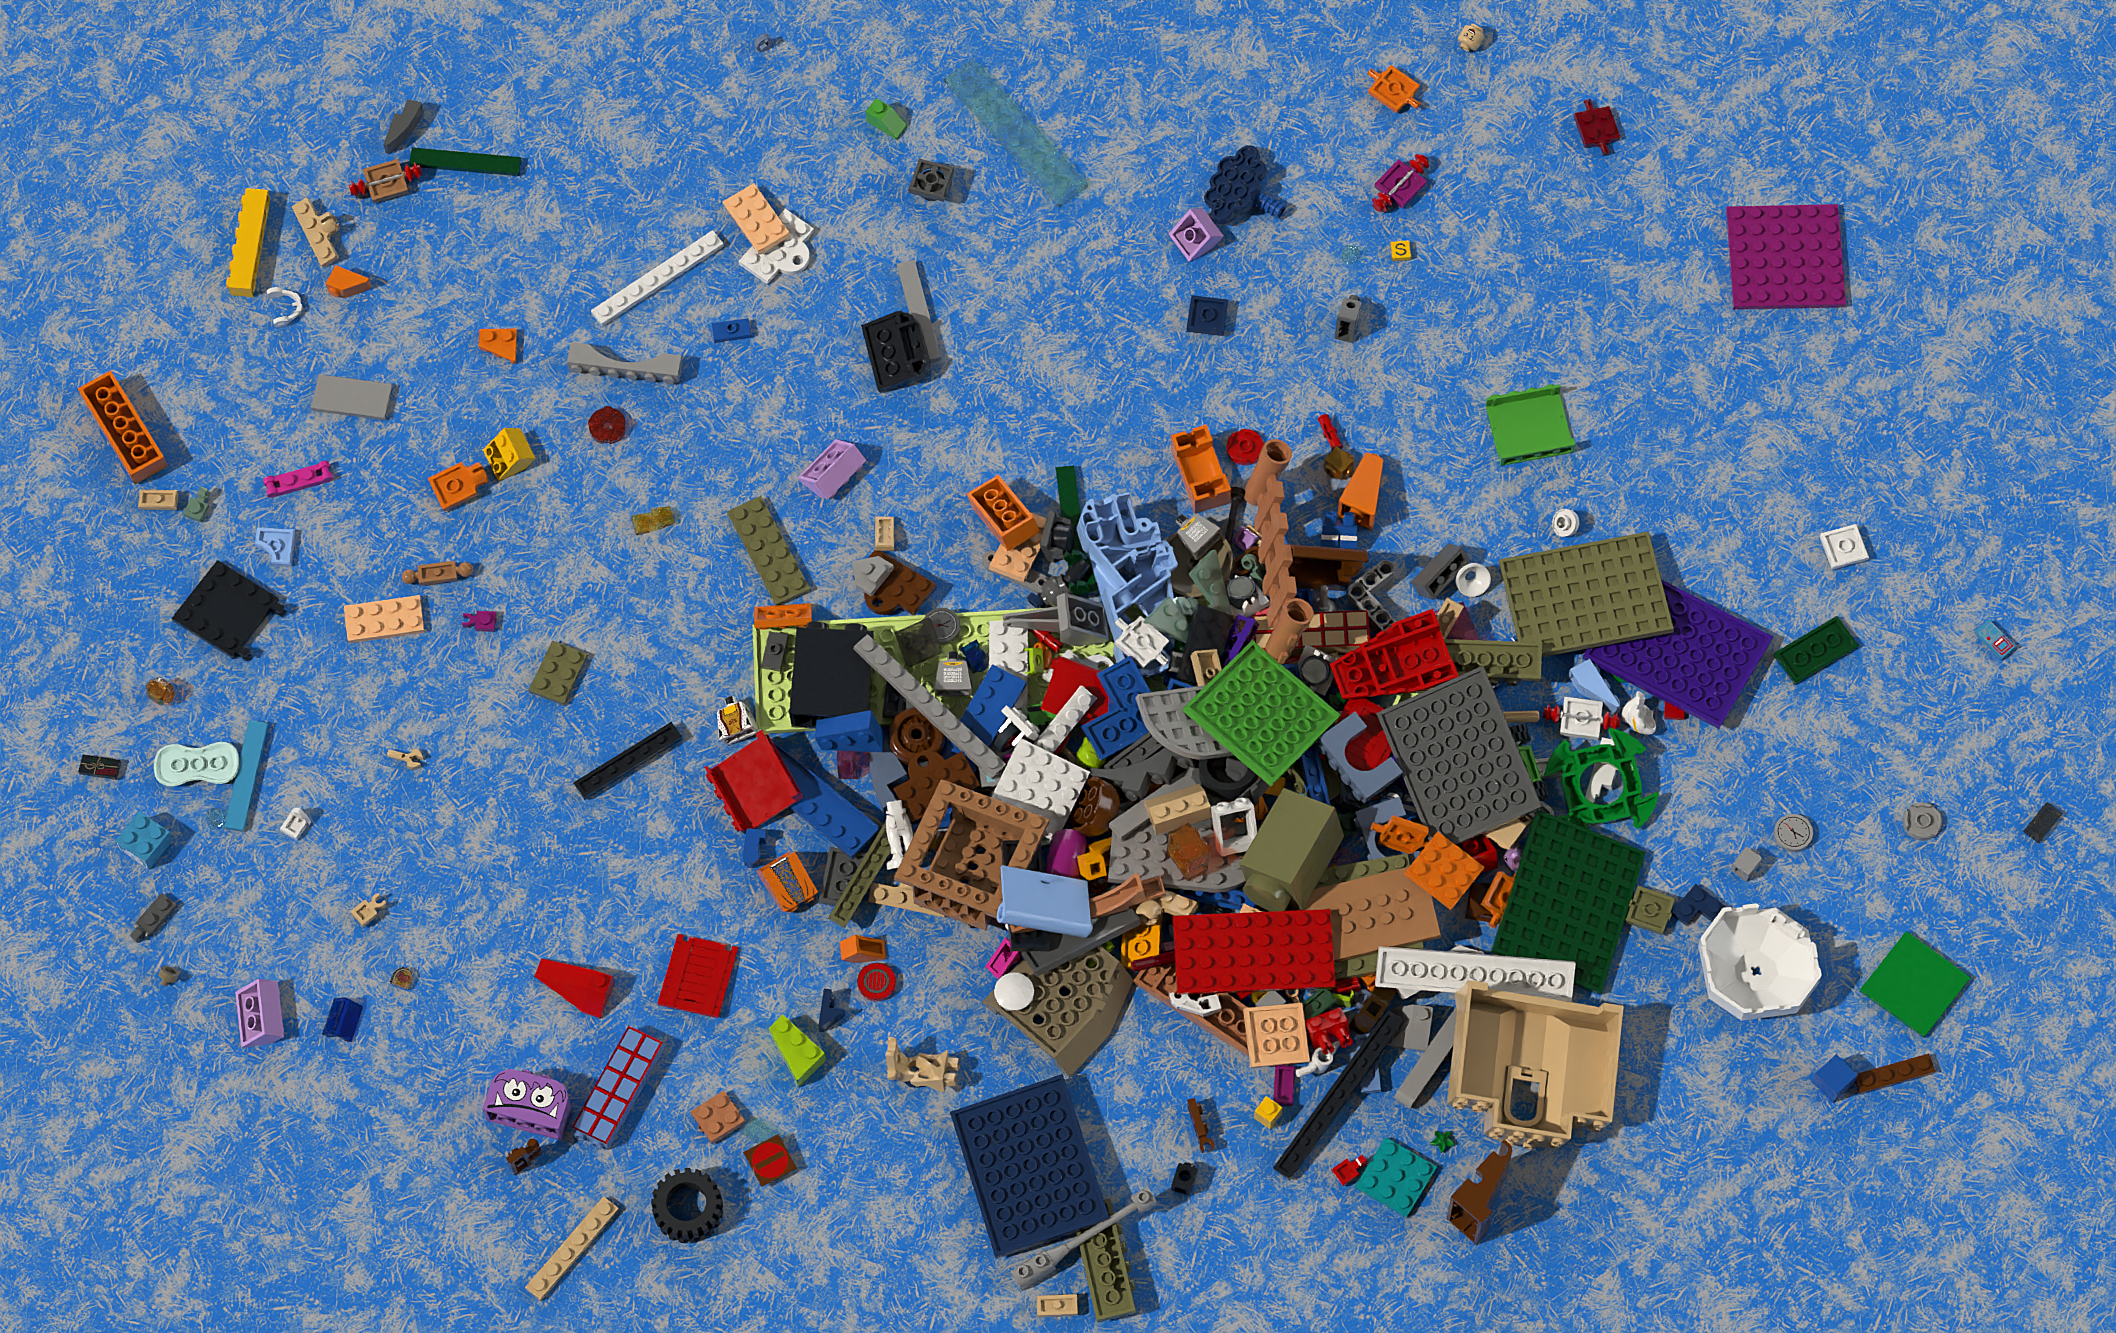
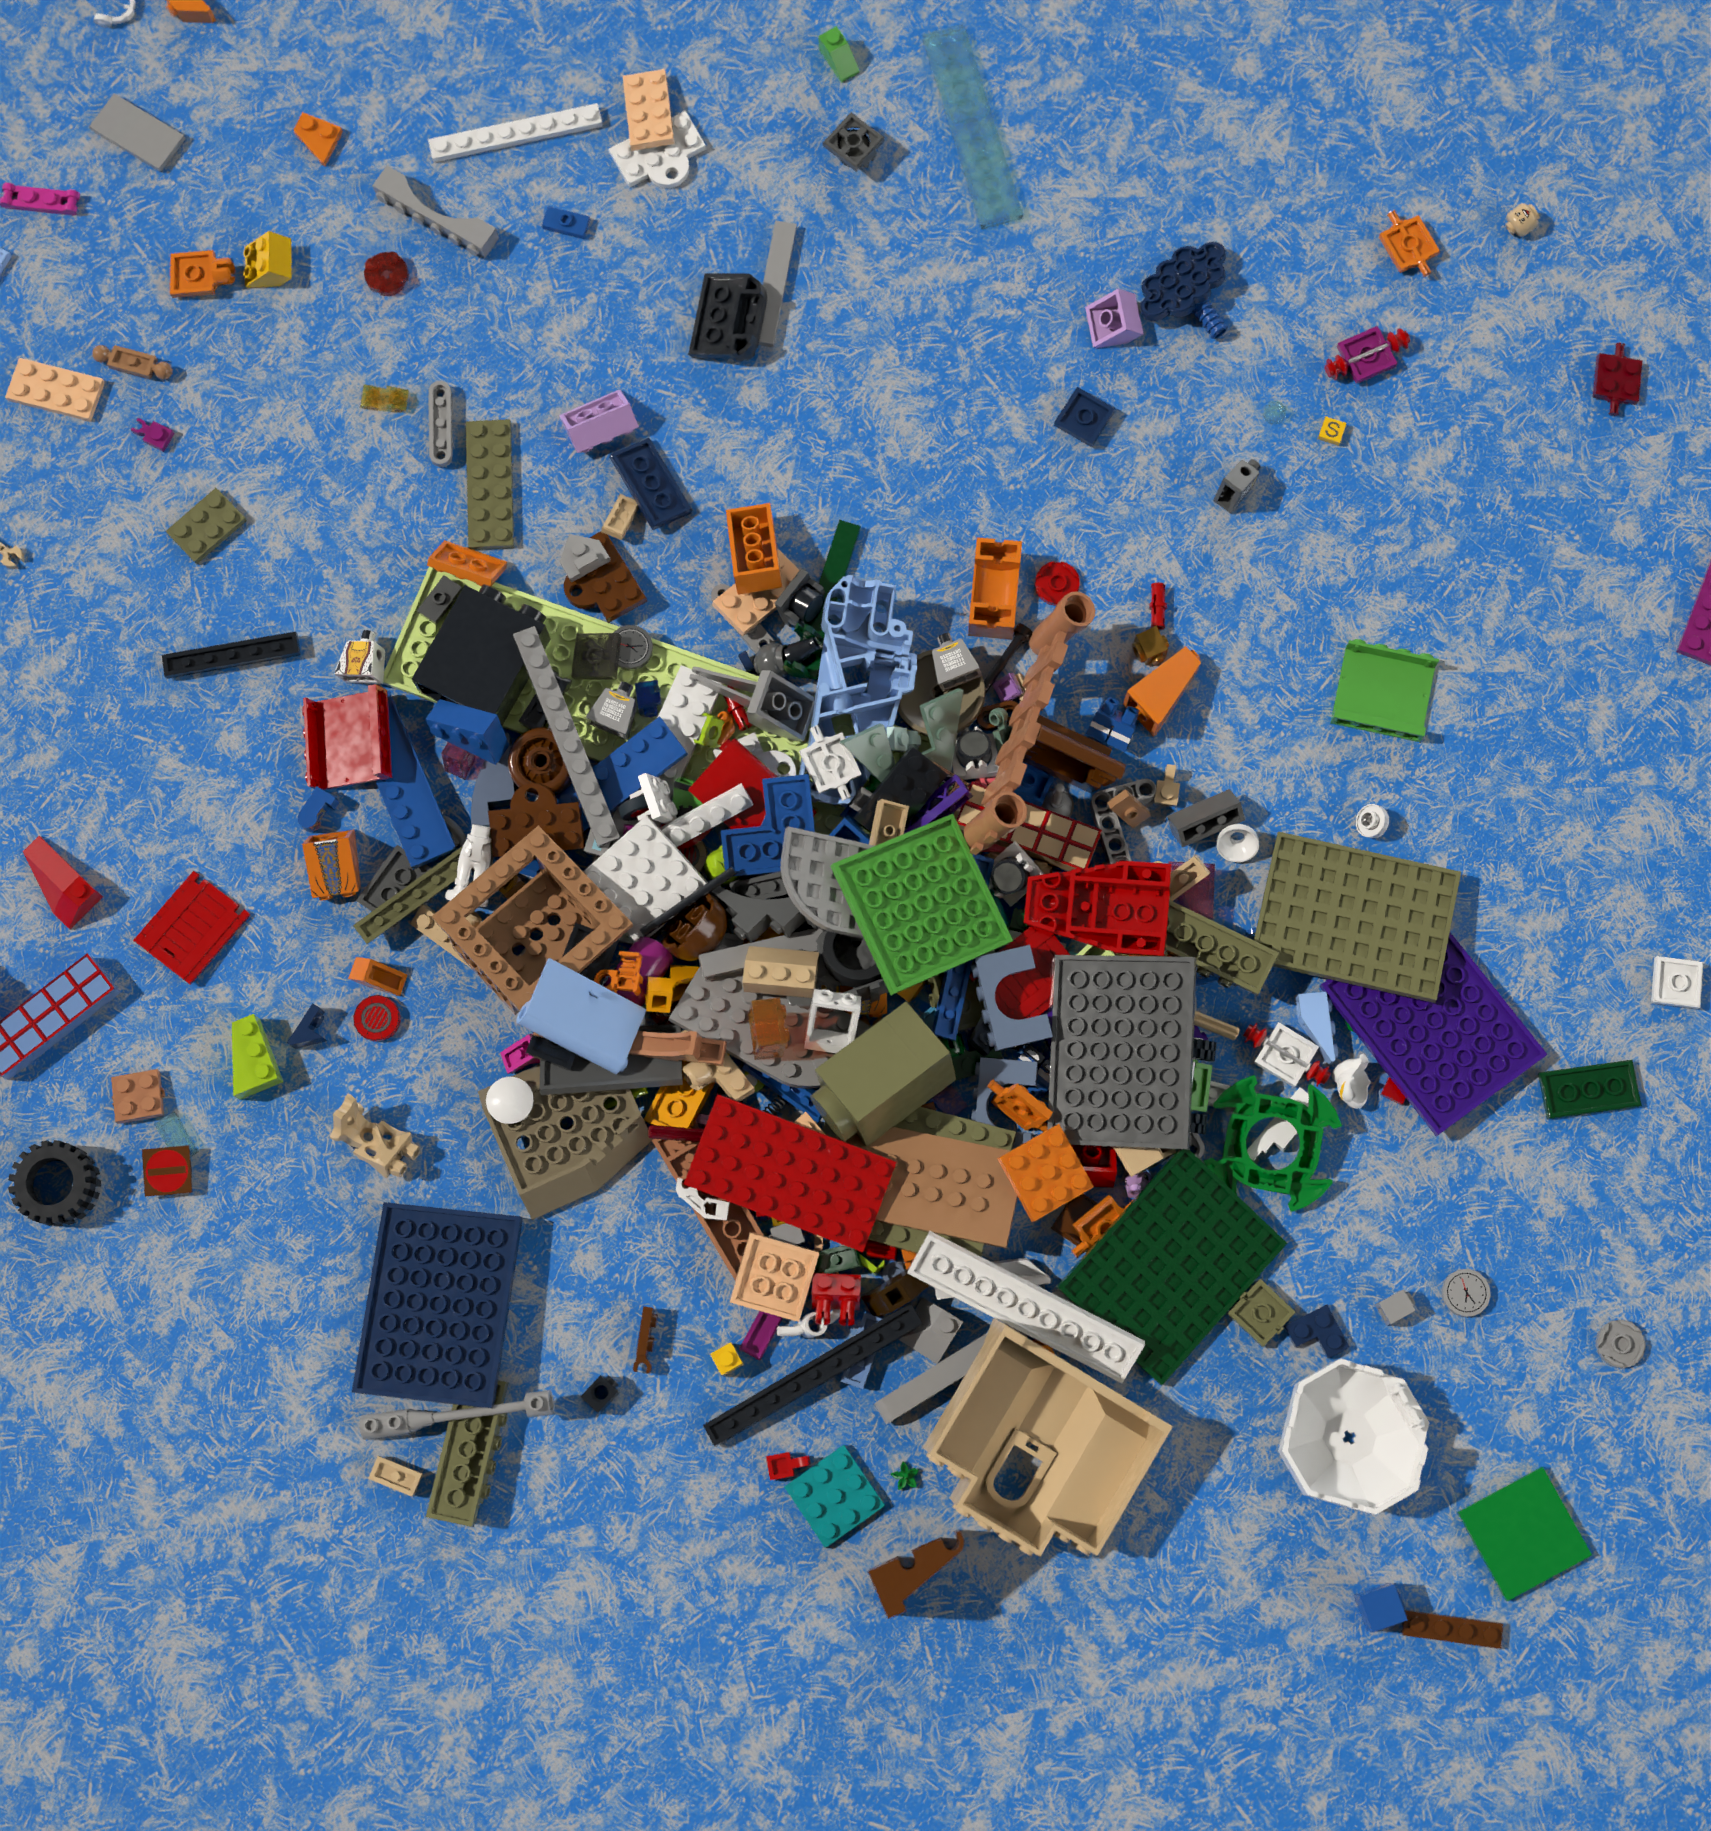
camera: 25 degrees right, 10 degrees up
(707, 520) = (440, 424): none -> light grey plate
(895, 499) = (650, 483): none -> dark blue tile
(1061, 859) = (629, 974): none -> orange piece
(1080, 790) = (688, 901): none -> black axle
(1380, 587) = (1129, 808): none -> medium nougat plate
(1401, 563) = (1167, 791): none -> tan plate

